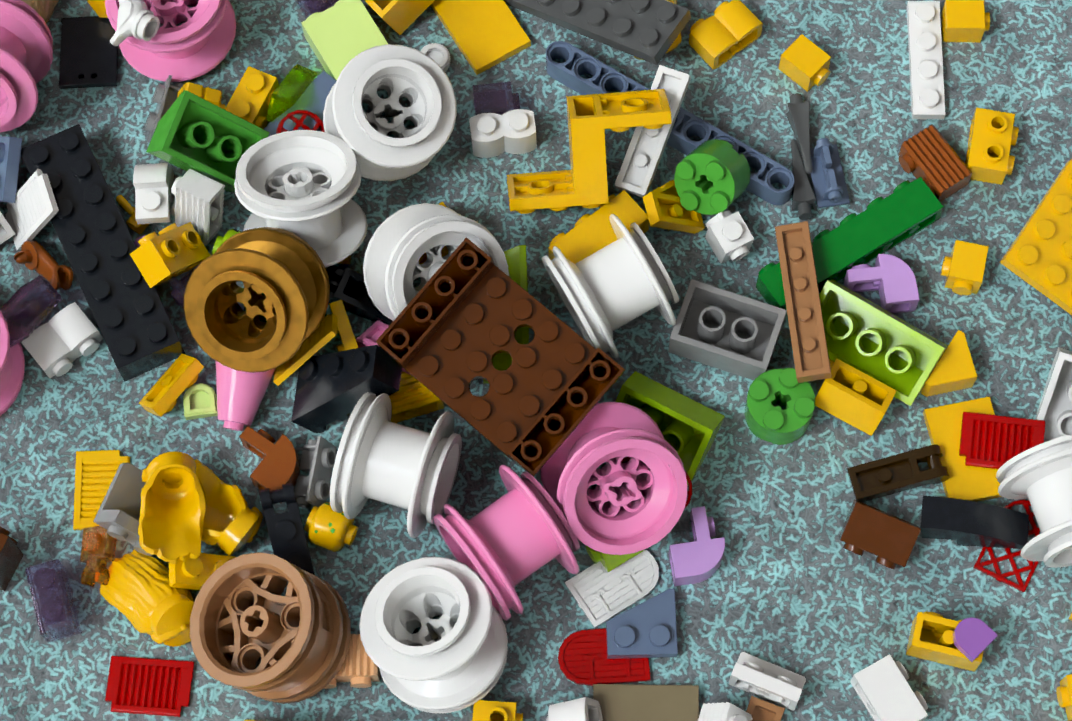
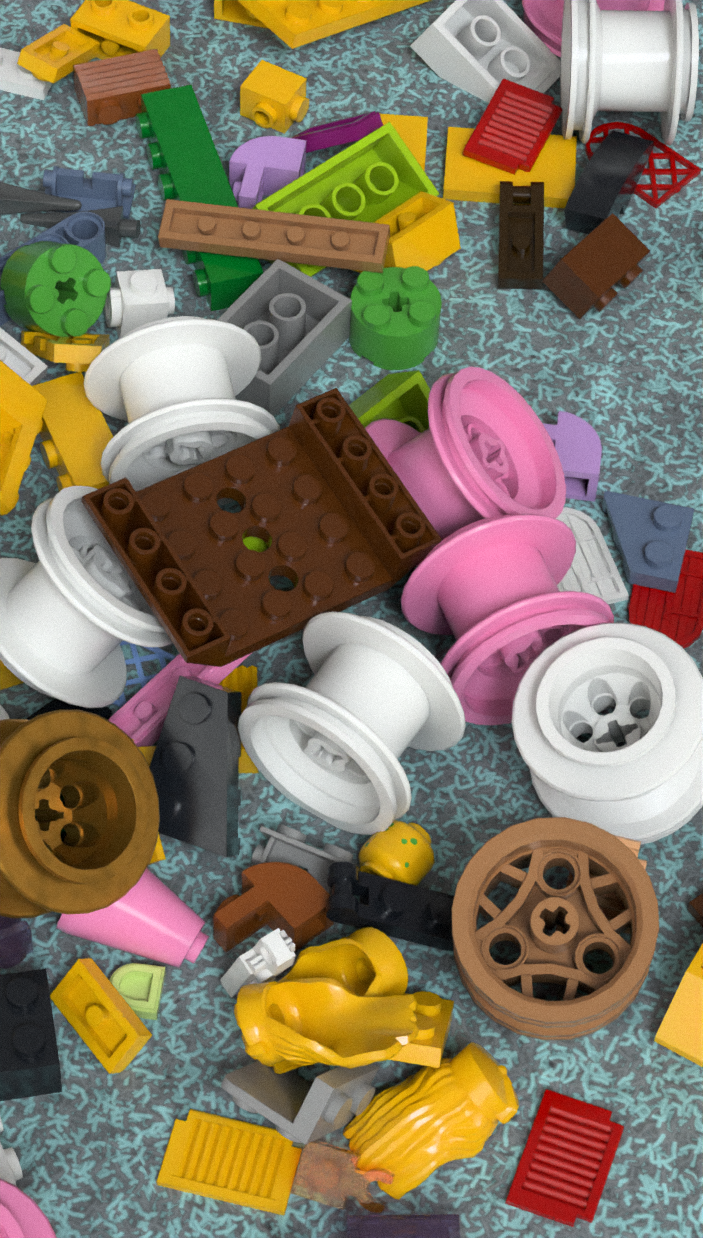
camera: 80 degrees left, 15 degrees down
(213, 462) = (261, 963): none -> white hinge
(937, 318) = (340, 131): none -> magenta tile
(941, 110) = (56, 53): none -> yellow plate

